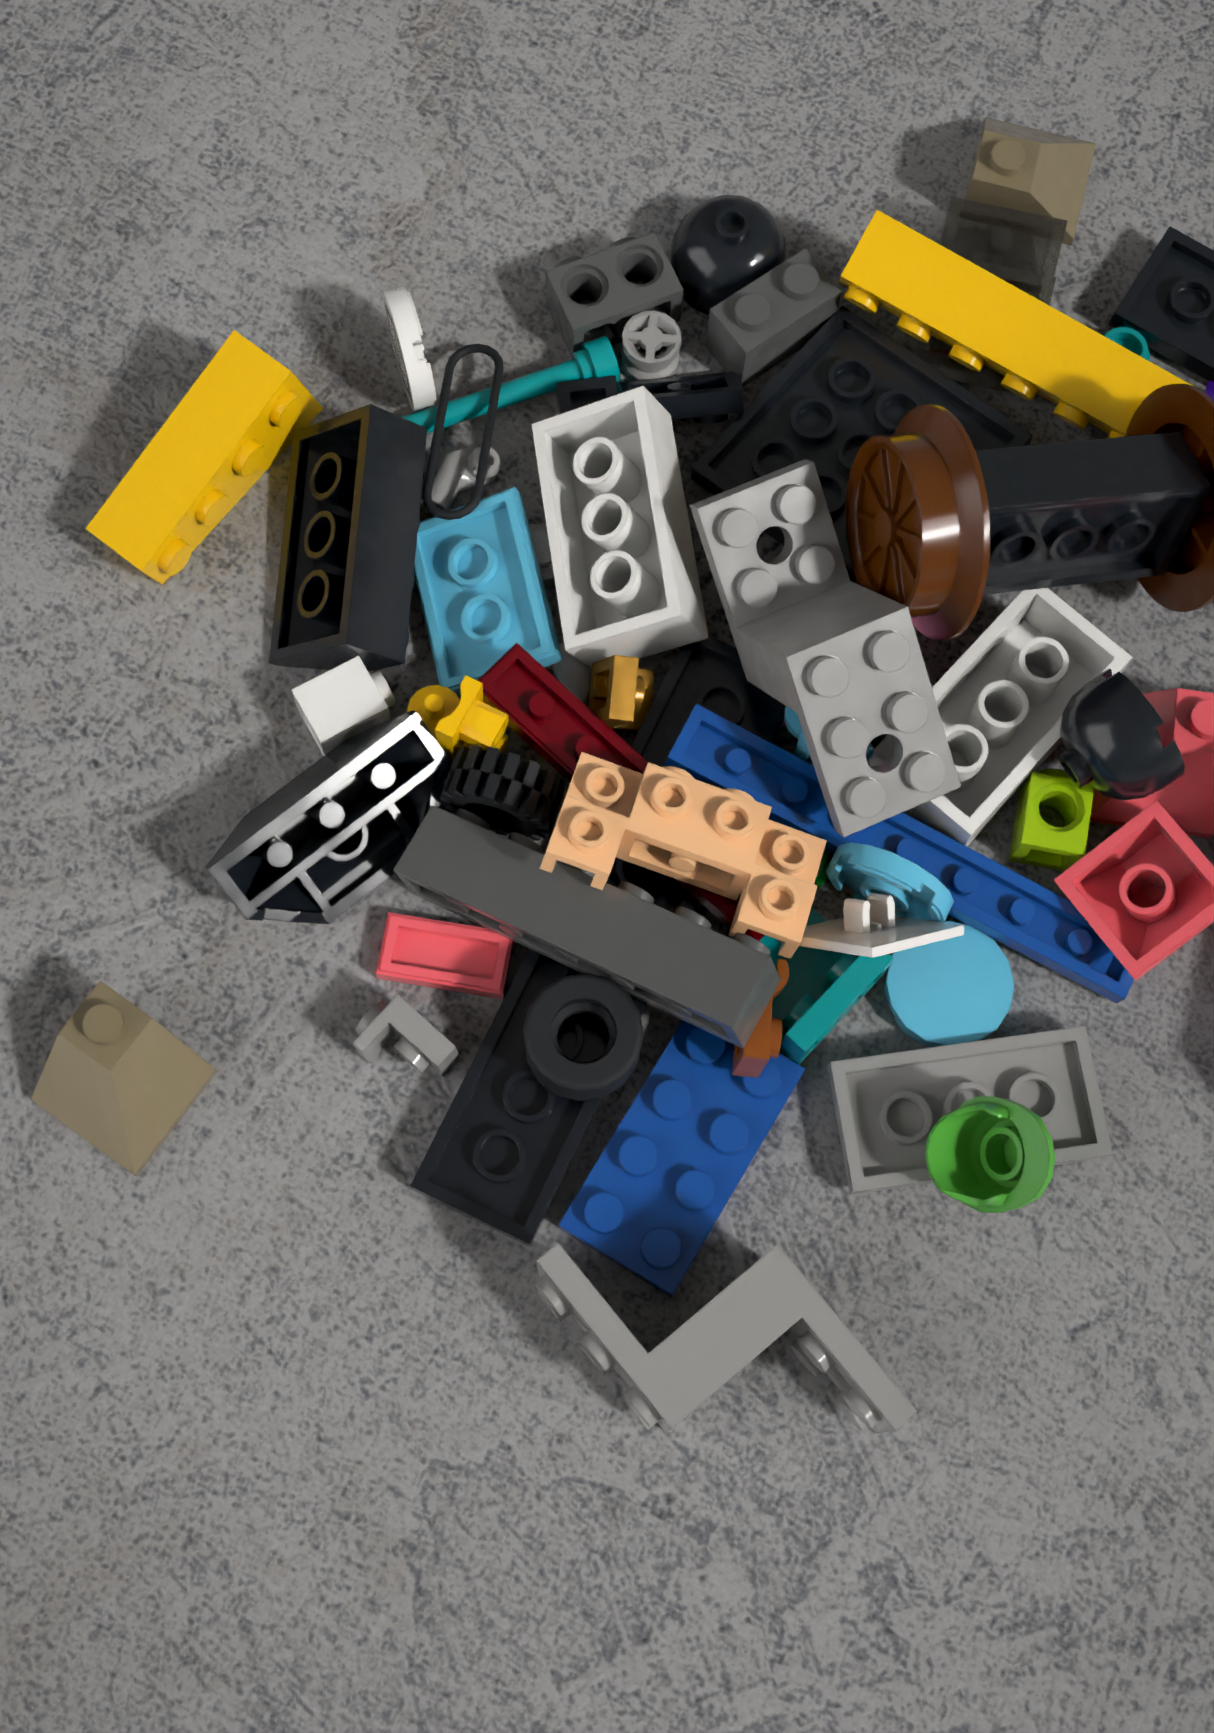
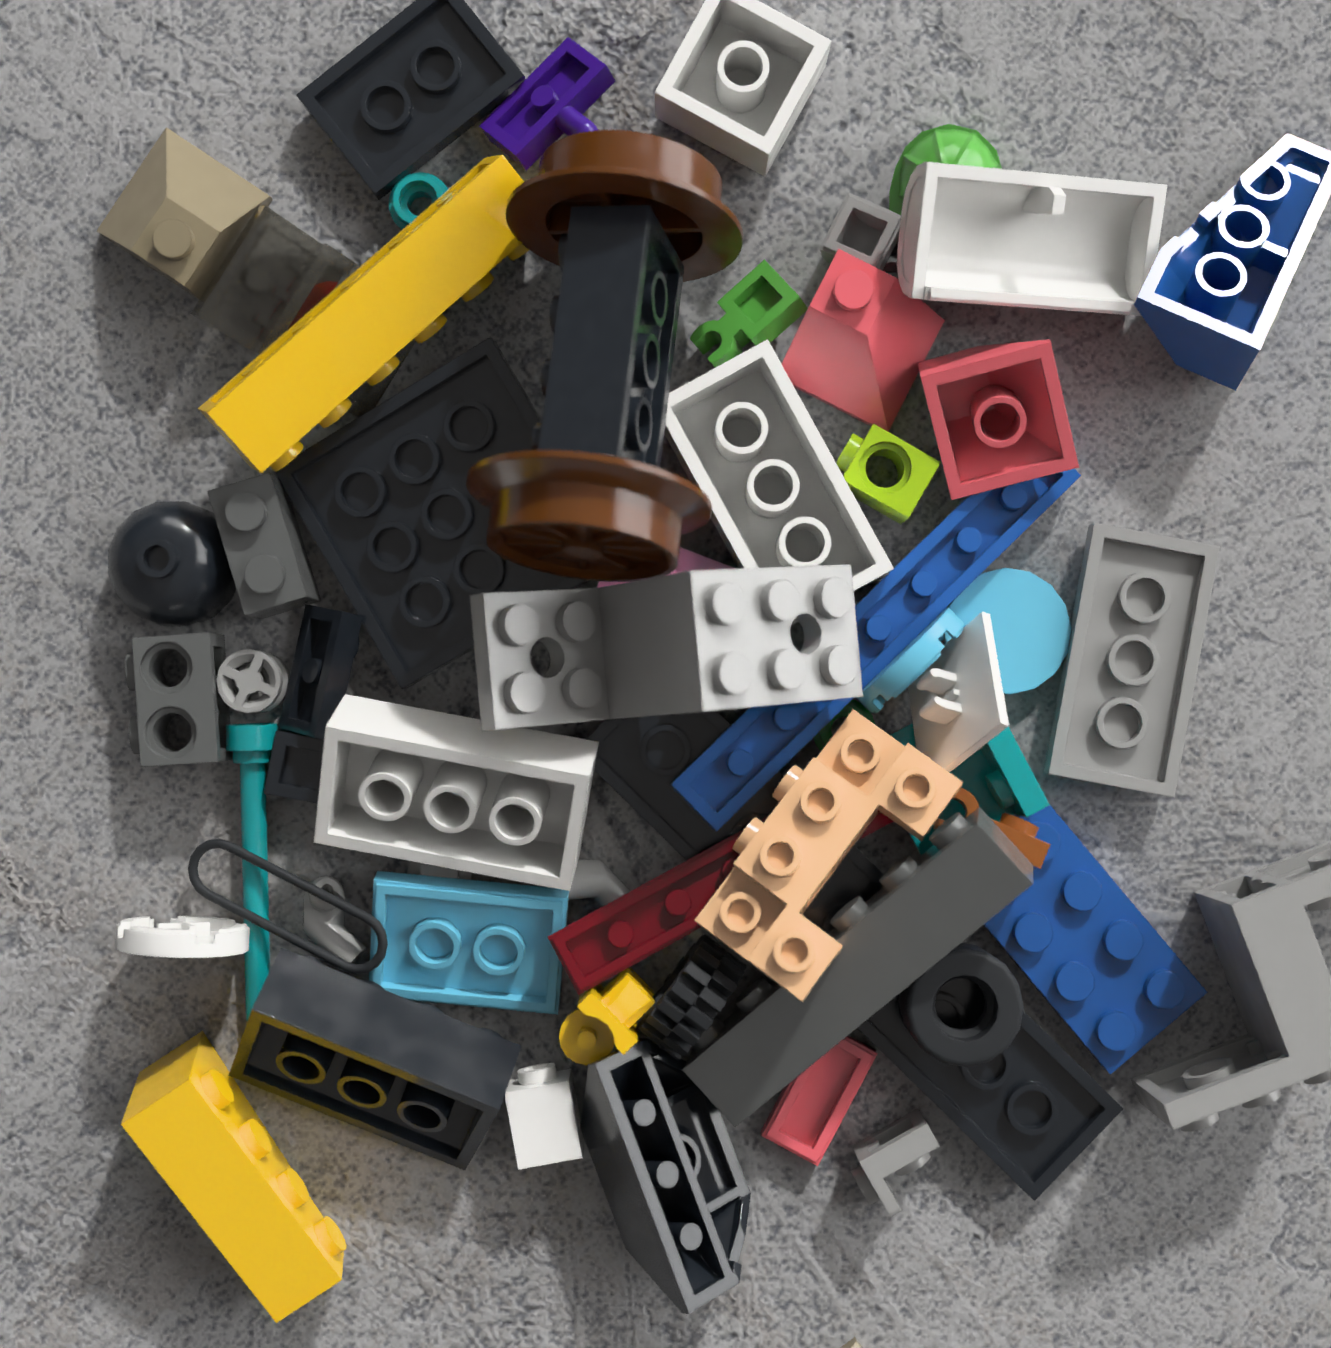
camera: 65 degrees left, 15 degrees up
(620, 692) = (624, 845): pearl gold bracket -> none
(991, 1155) = (1203, 670): bright green piece -> none
(1116, 740) = (856, 398): black cylinder -> none
(1157, 659) = (755, 311): none -> bright green plate

